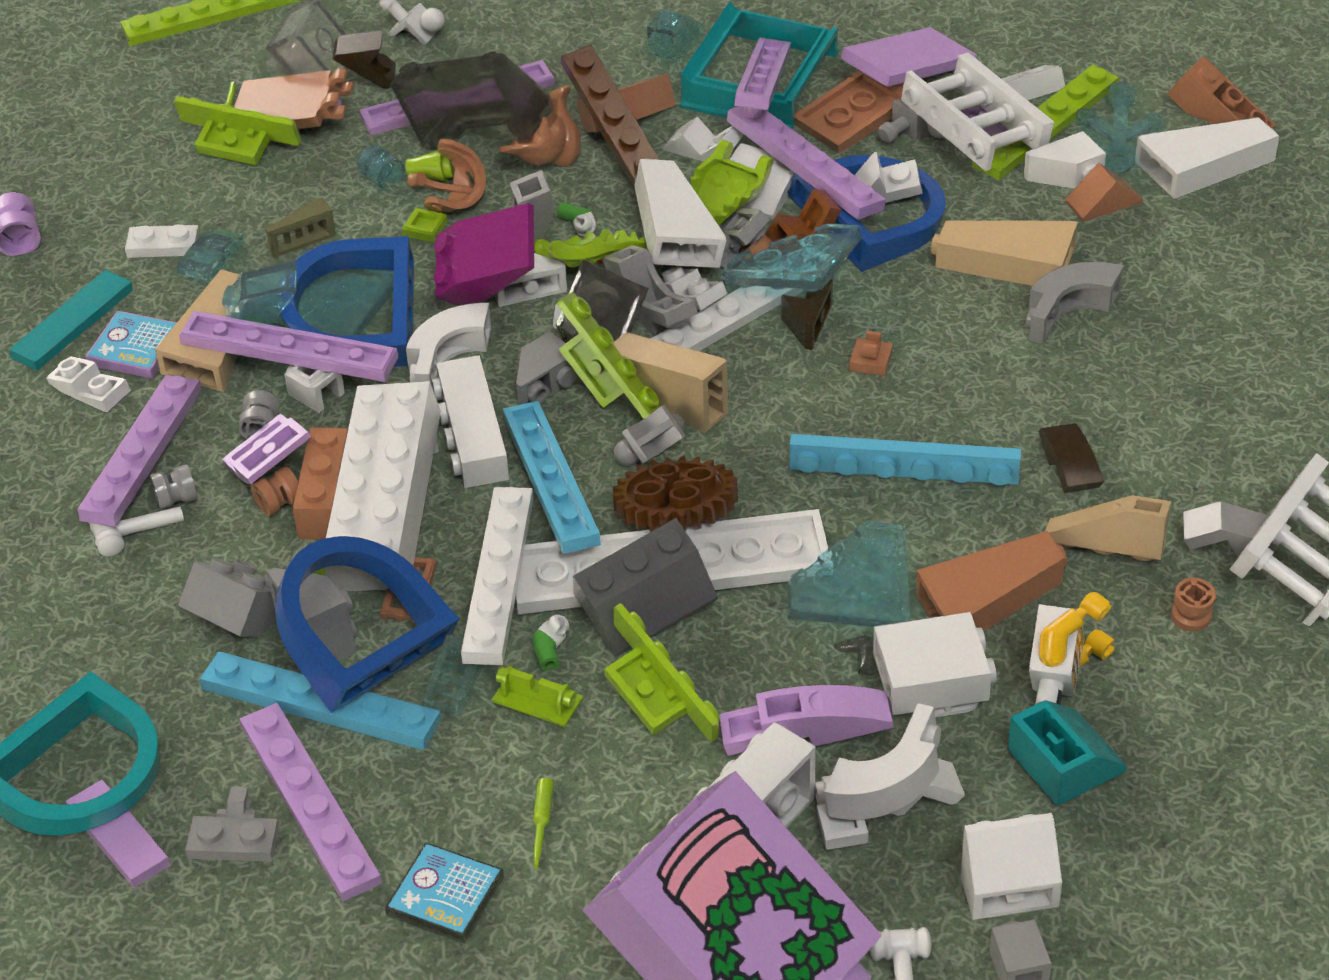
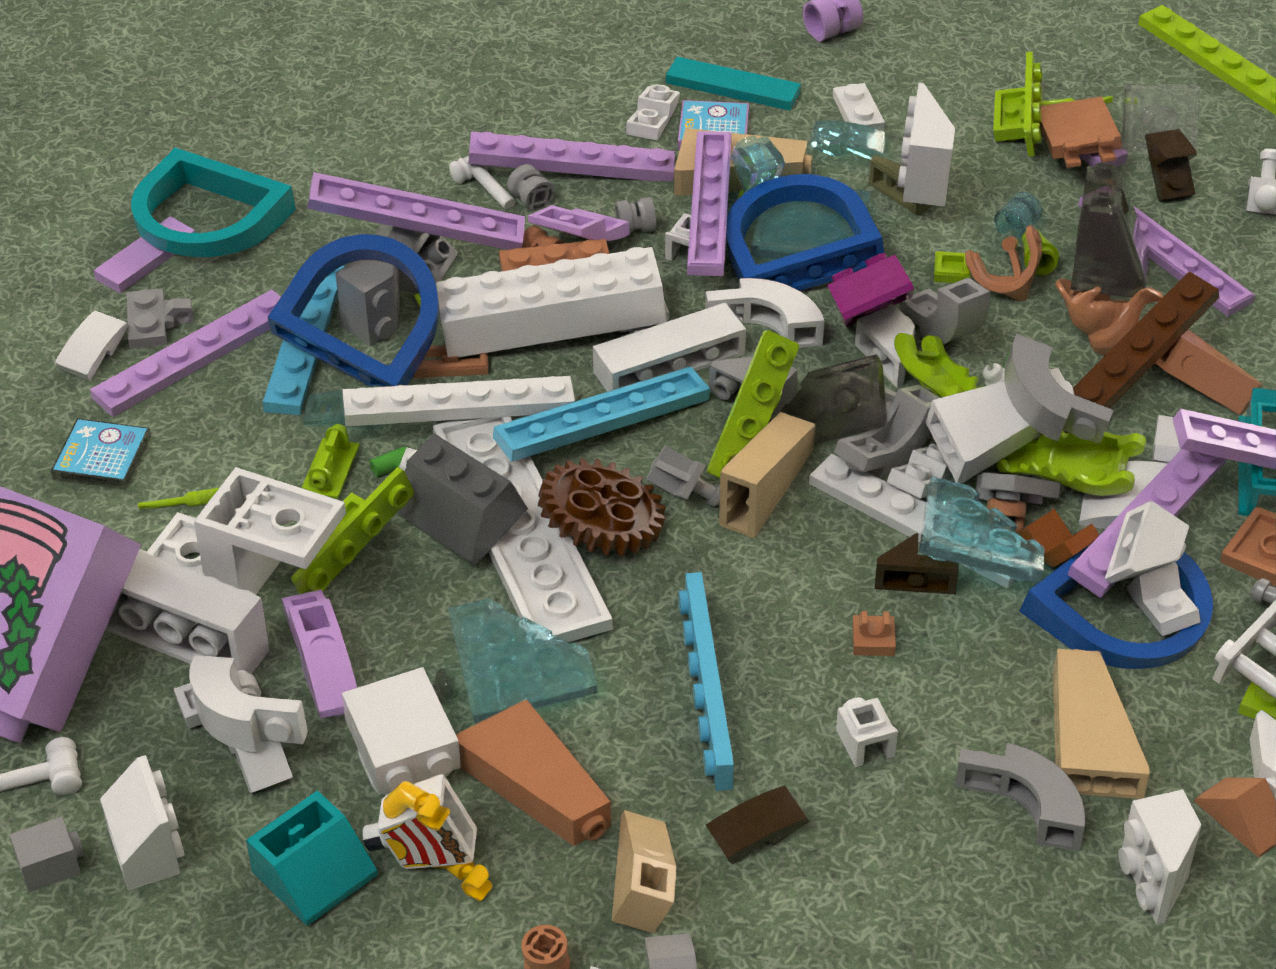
camera: 75 degrees right, 0 degrees up
(225, 551) = (415, 212): none -> lavender plate
(268, 884) = (90, 343): none -> white slope
(306, 176) = (926, 151): none -> white slope
(671, 737) = (242, 532): none -> white bracket
(677, 170) = (1044, 401): none -> light grey arch
(862, 158) = (1146, 542): none -> white slope
(984, 375) = (864, 724): none -> white window
(1159, 230) = (1159, 849): none -> white slope

